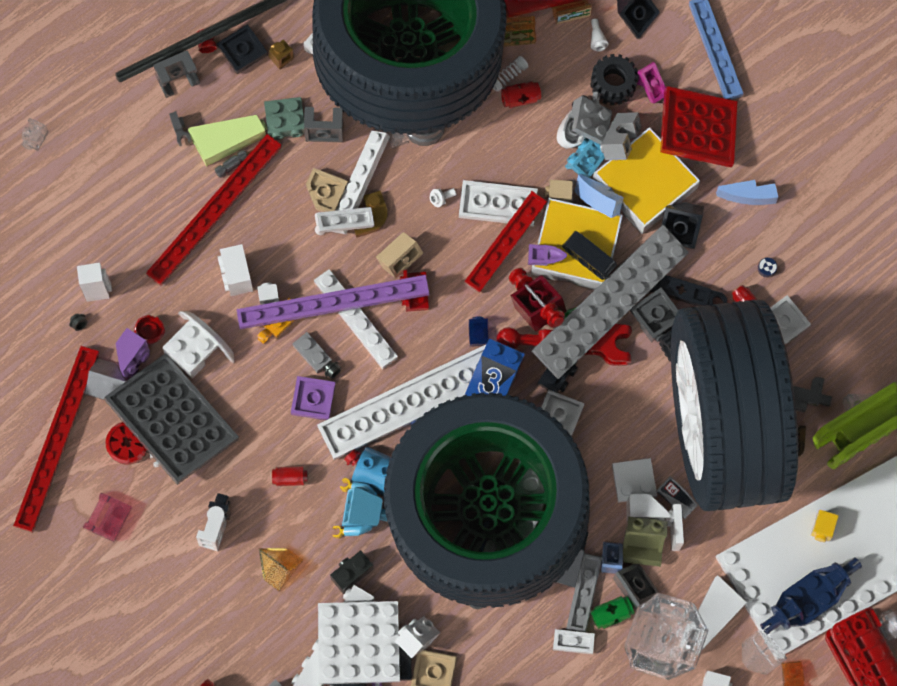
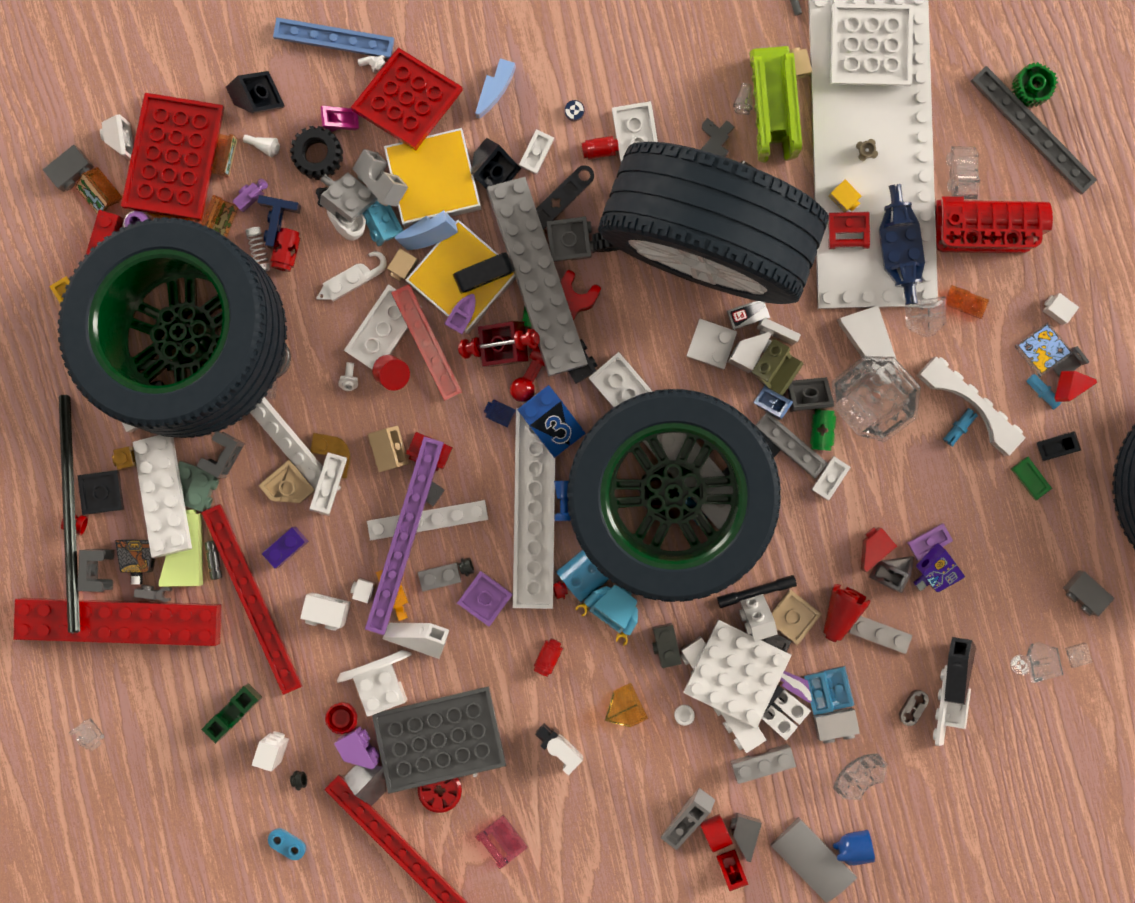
camera: 60 degrees left, 15 degrees up
(17, 338) = (287, 842): none -> dark azure plate
(121, 242) = (232, 713): none -> dark green arch
(142, 115) = (119, 622): none -> red brick
(203, 102) = (135, 557): none -> torso
(207, 668) = (688, 818): none -> light grey slope
(252, 360) = (418, 636): none -> white slope
(265, 95) = (162, 496): none -> white plate
(272, 214) = (285, 547): none -> dark purple brick
(297, 620) = (684, 715): none -> white tile
(381, 312) = (434, 493): none -> dark grey plate
(455, 644) = (778, 585): none -> black piece
(465, 225) = (391, 372): none -> red piece
(525, 158) = (351, 279): none -> white plate
(545, 73) = (275, 216): none -> dark blue bracket
(550, 45) = (250, 194): none -> medium lavender piece
(714, 89) = (375, 62): none -> white plate
(714, 253) = (536, 152): none -> white plate
(803, 542) = (849, 223): none -> red plate
(875, 519) = (870, 144): none -> dark tan plate

